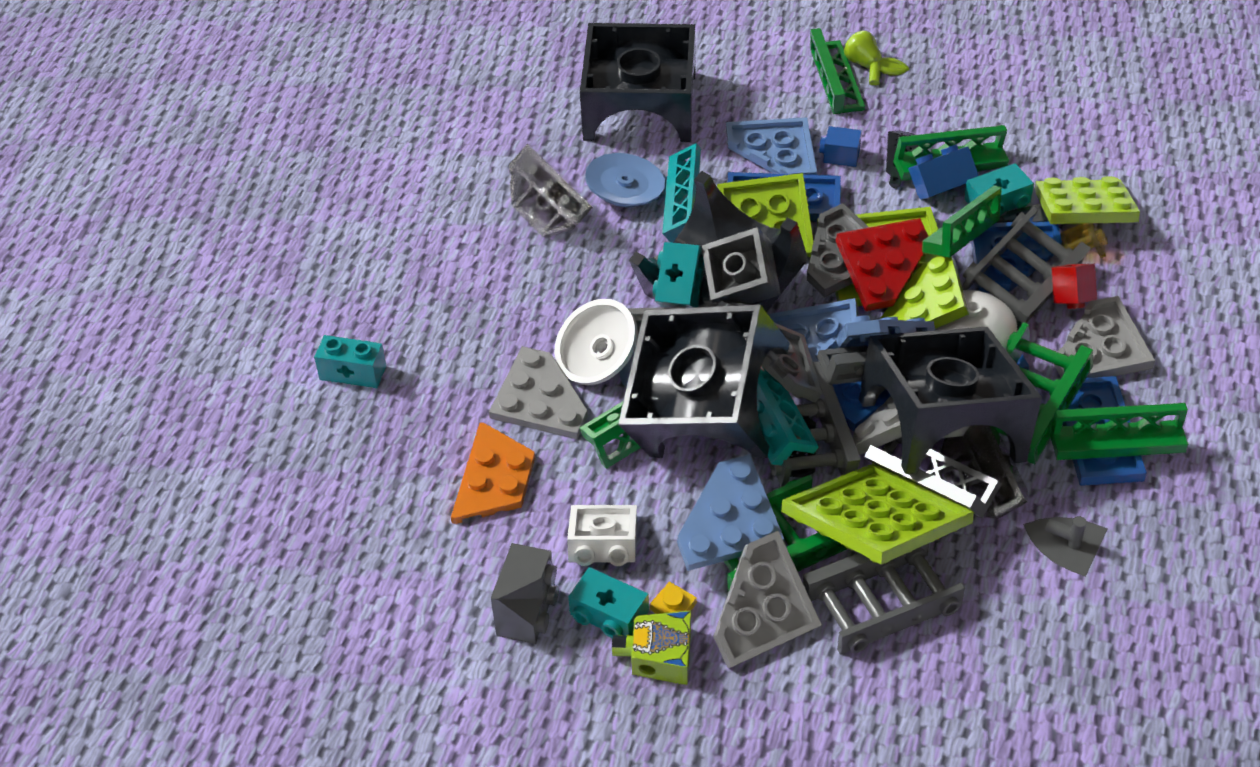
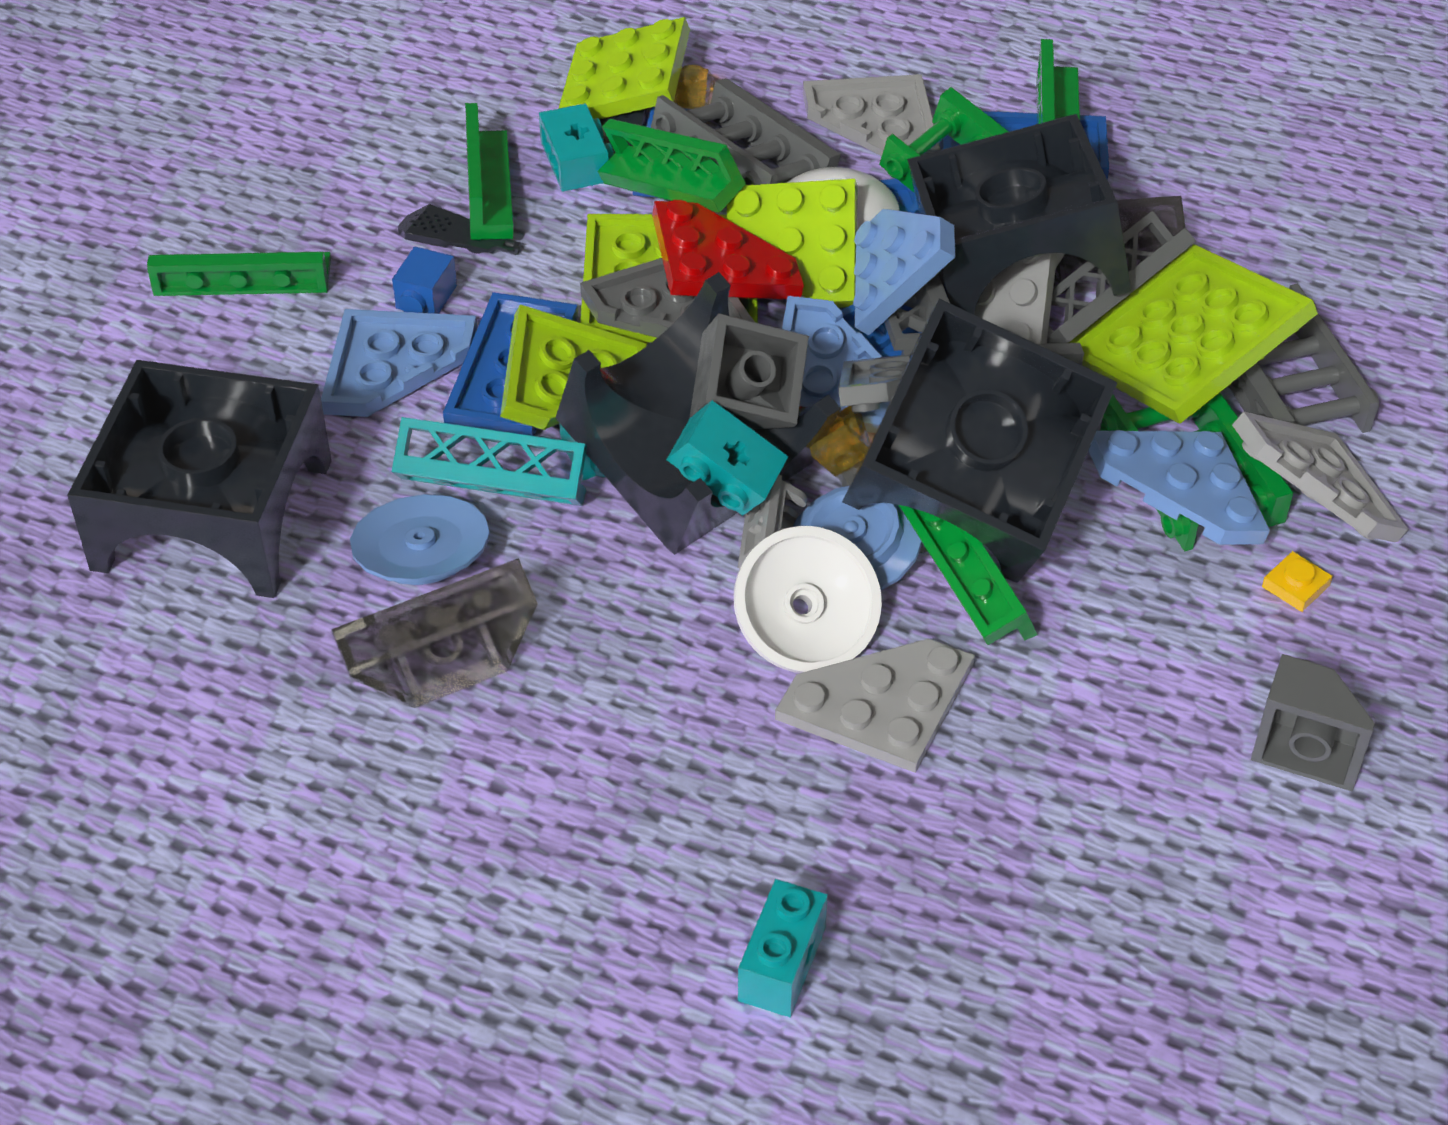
camera: 85 degrees left, 0 degrees up
(493, 476) = (1045, 770): orange wing -> none
(602, 534) = (1183, 636): white plate -> none
(607, 603) = (1316, 630): teal brick -> none
(658, 646) = (1382, 593): torso -> none
(863, 50) = (208, 227): lime piece -> none
(943, 172) = (531, 184): blue brick -> none
(1067, 541) = (1202, 207): dark grey shield -> none
(1074, 284) = (796, 98): red brick -> none

